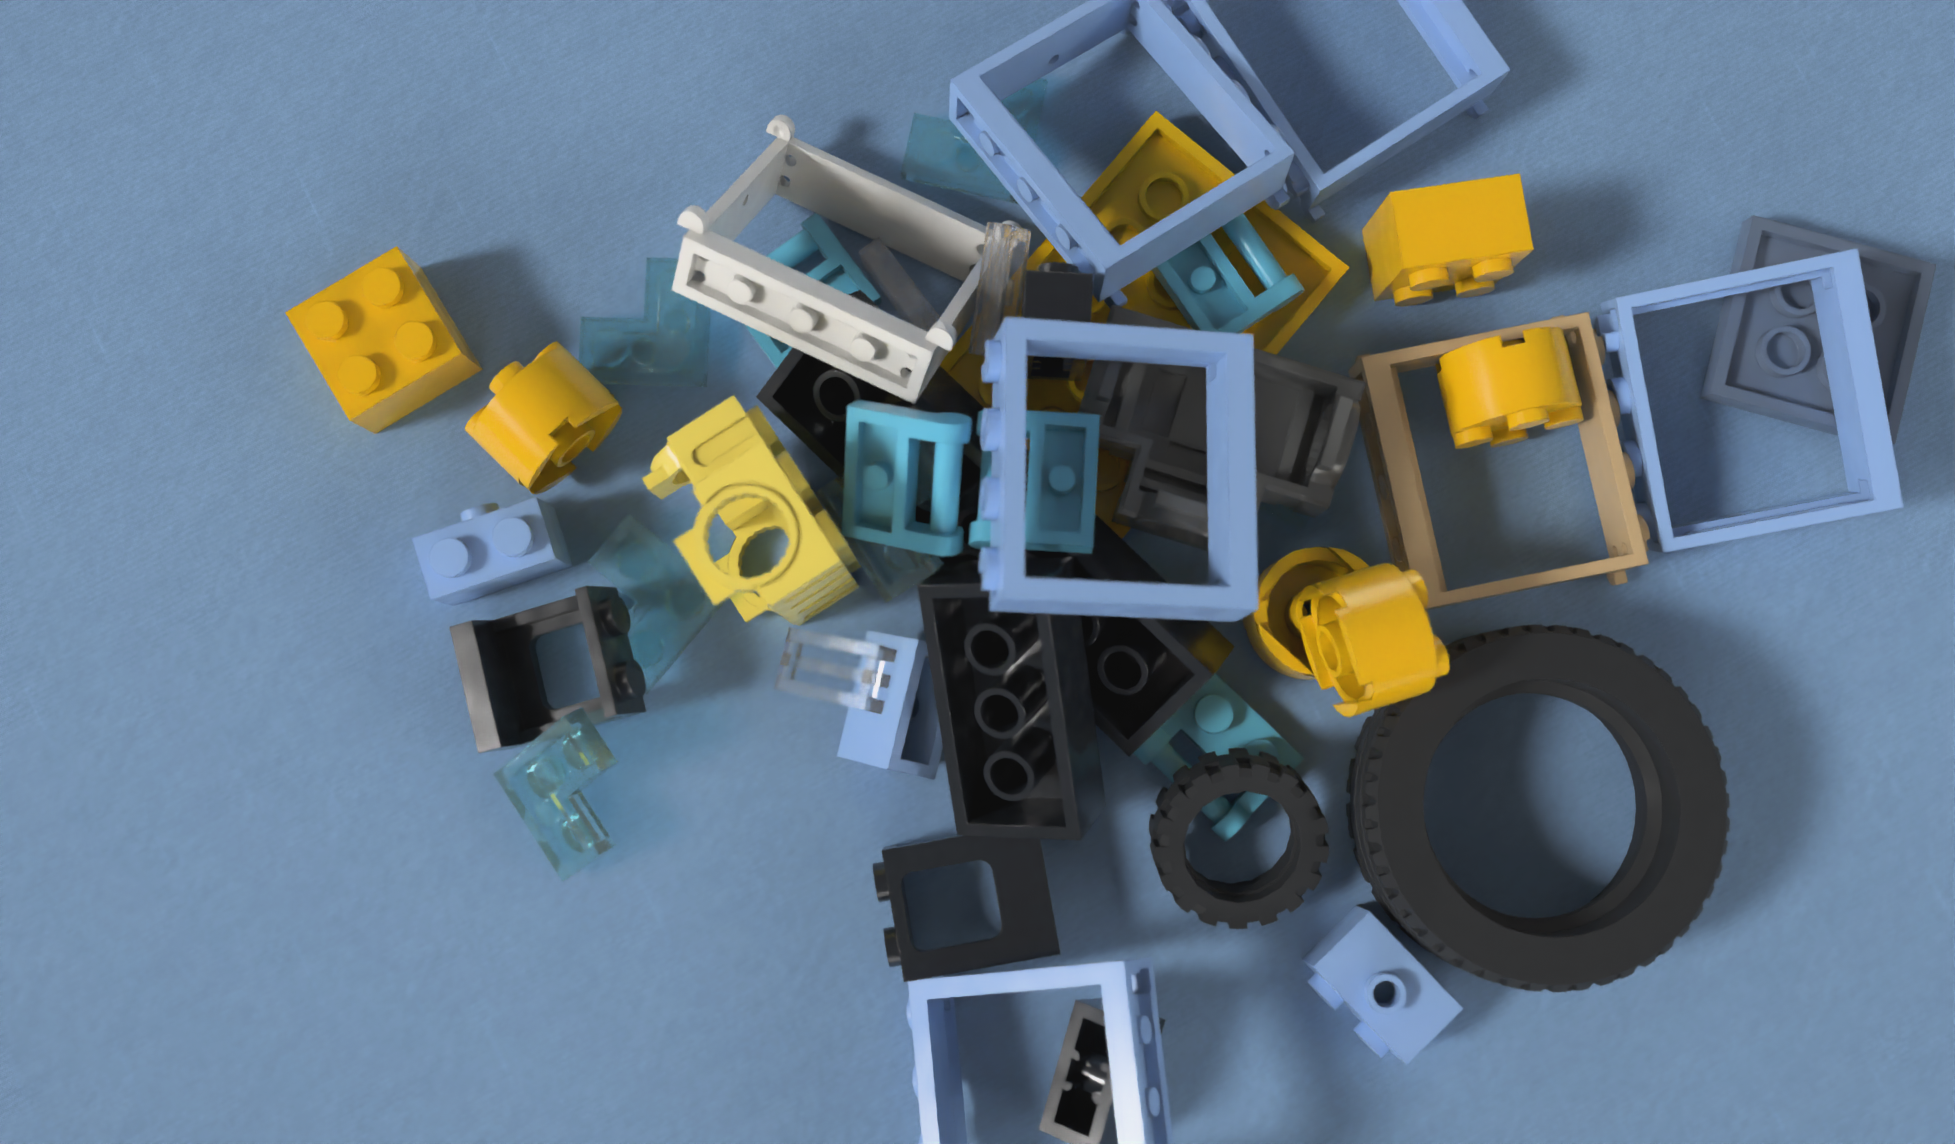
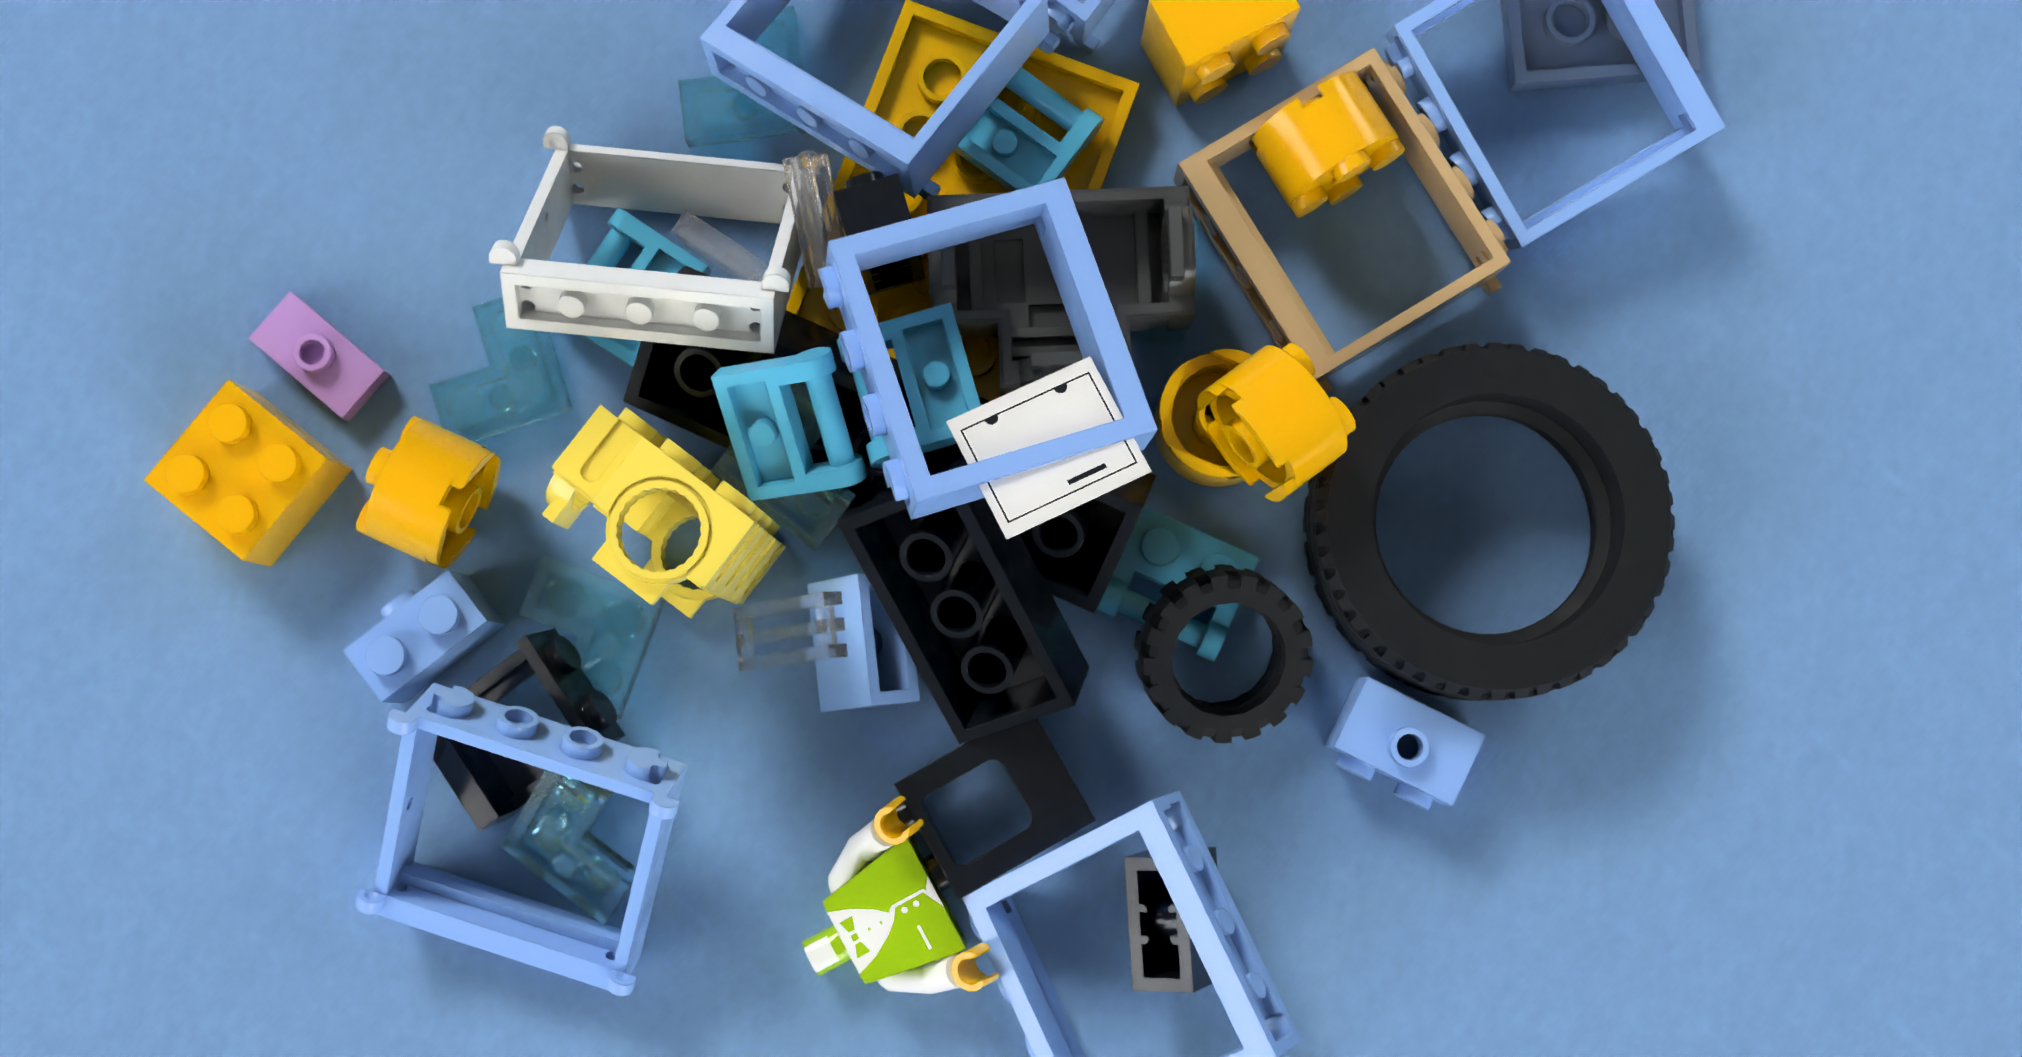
camera: 20 degrees left, 0 degrees up
(461, 836) = (494, 917): none -> light blue window
(489, 253) = (319, 356): none -> lavender plate
(836, 975) = (893, 916): none -> torso
(1147, 552) = (1037, 413): none -> white sticker

